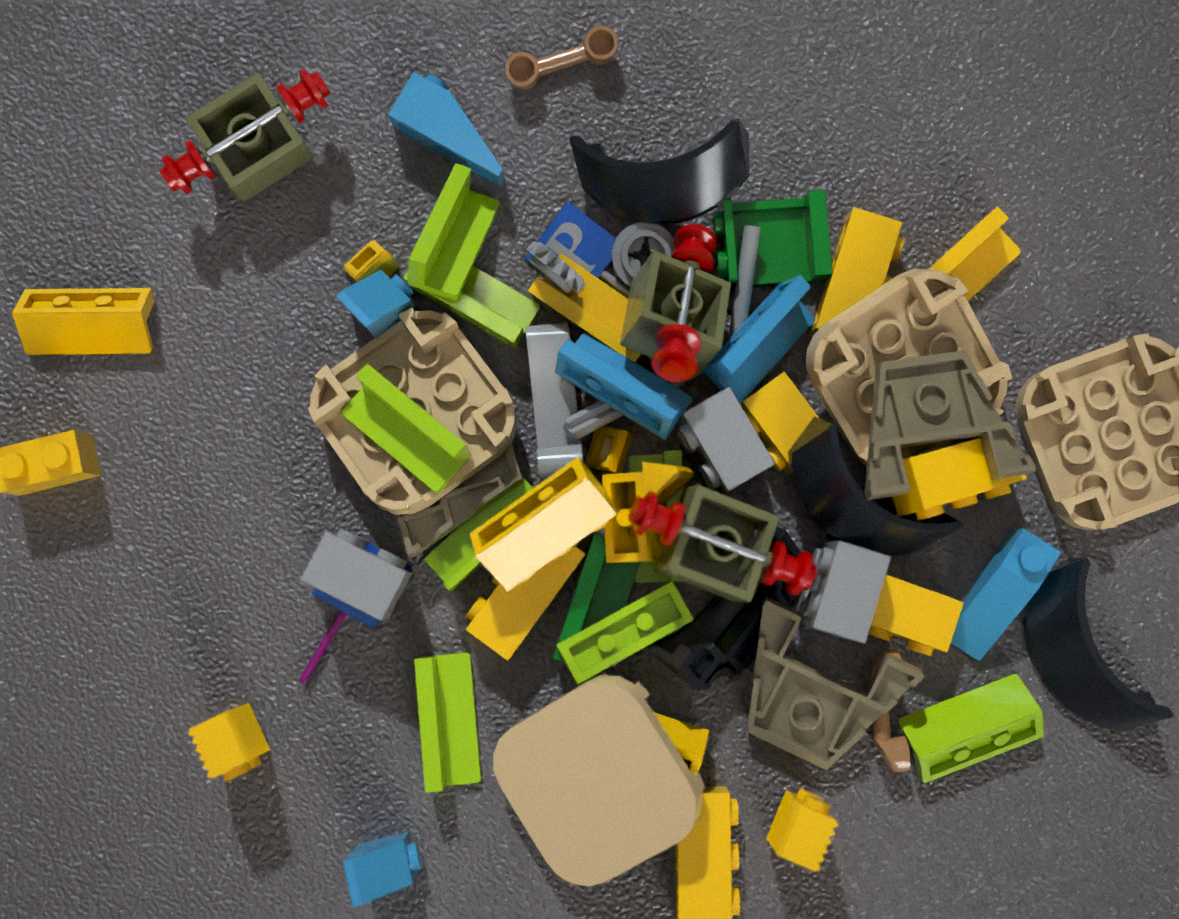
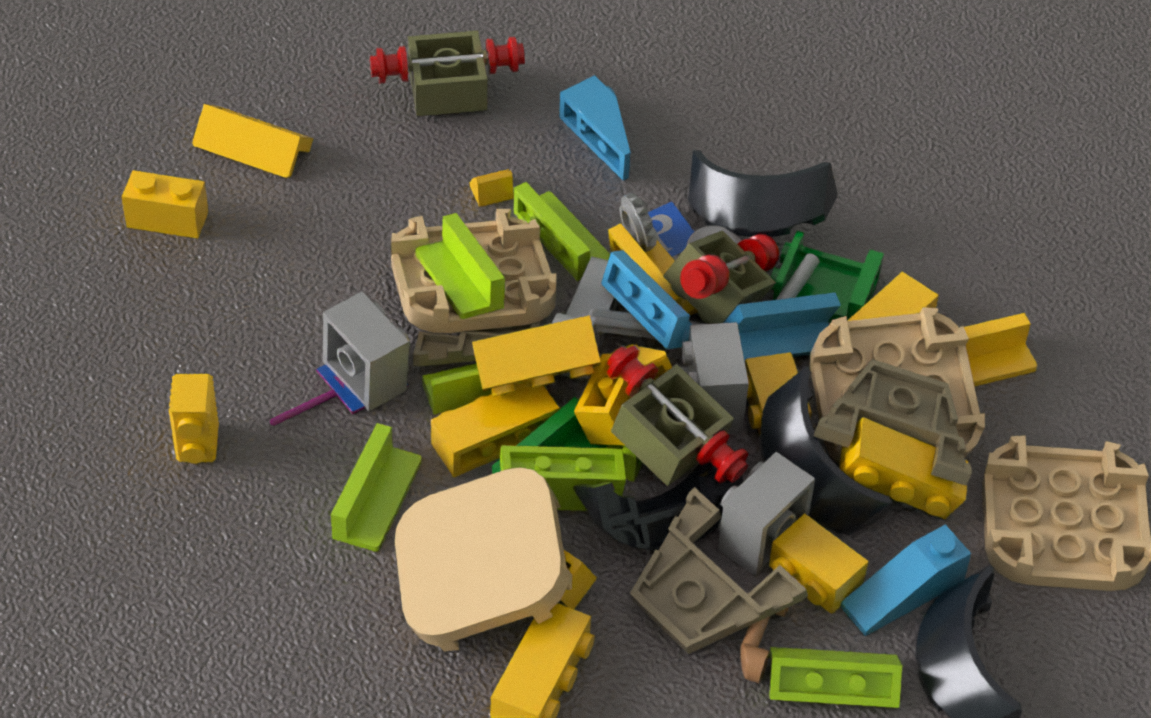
camera: 20 degrees right, 35 degrees down
(377, 301) = (481, 194): dark azure slope -> none
(381, 867) = (261, 554): dark azure slope -> none
(451, 237) = (565, 175): lime panel -> none
(599, 48) = (681, 115): medium nougat bar -> none
(802, 828) = (640, 666): yellow brick -> none

